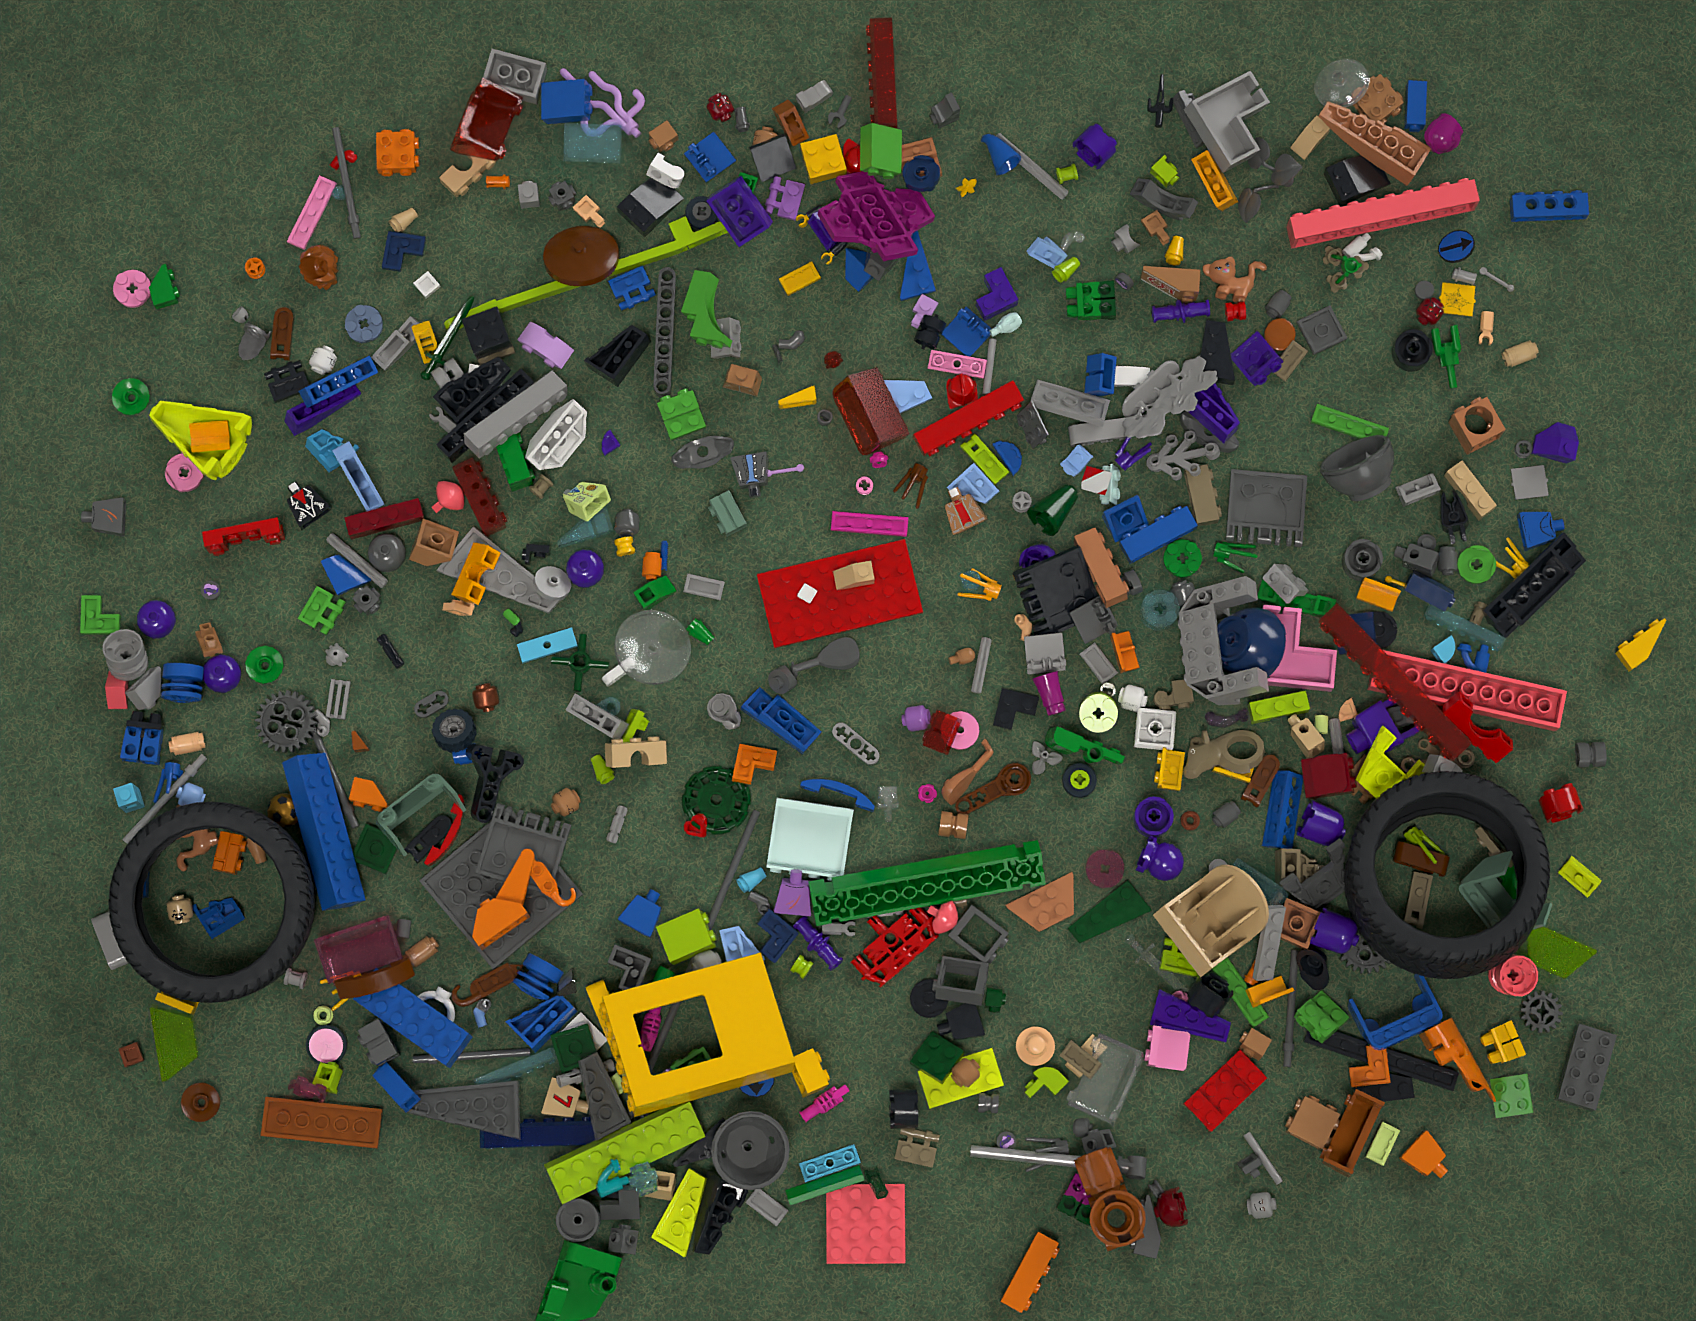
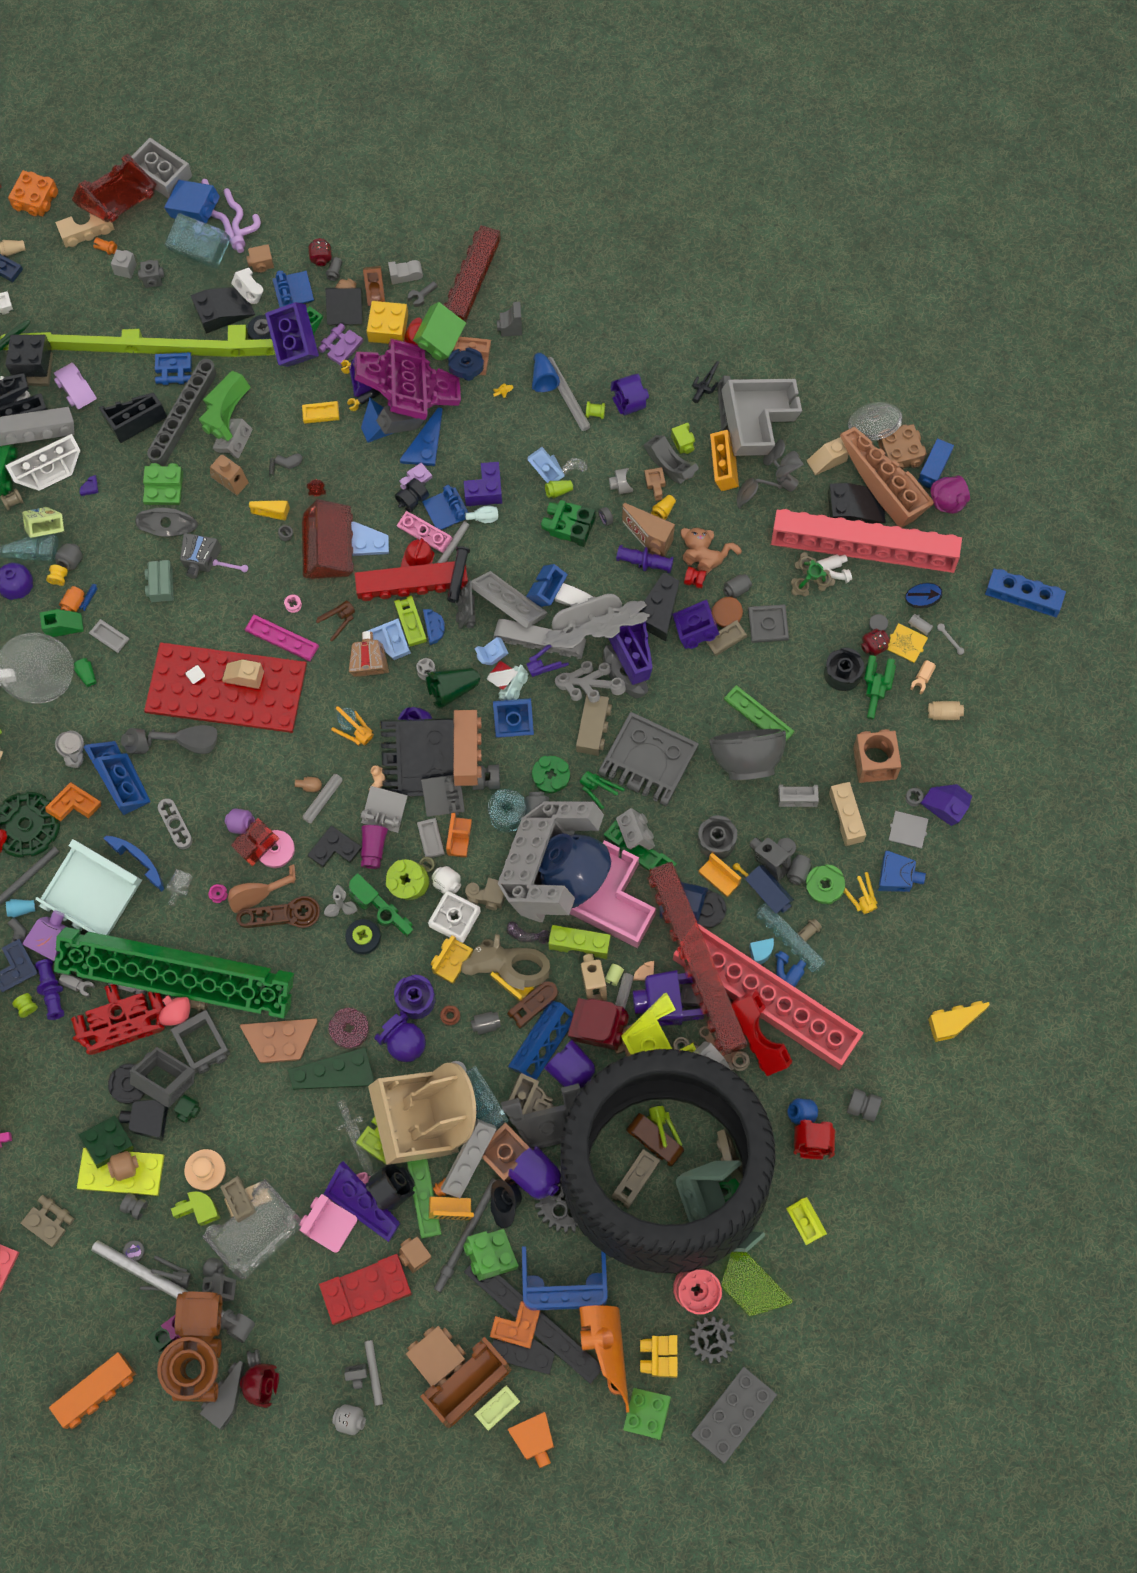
camera: 25 degrees right, 10 degrees down
(581, 256) = (140, 324): reddish brown dish -> none
(588, 210) = (168, 294): light nougat plate -> none
(879, 457) = (315, 584): dark pink plate -> none
(903, 1108) = (49, 1177): black brick -> none
(953, 825) = (226, 930): medium nougat wheel -> none
(1014, 398) = (458, 572): none -> black pin
(1157, 534) = (537, 743): blue brick -> none
(1453, 520) = (820, 832): black hinge -> none
(1534, 586) = (872, 923): black slope -> none
(1539, 781) = (802, 1110): none -> blue head

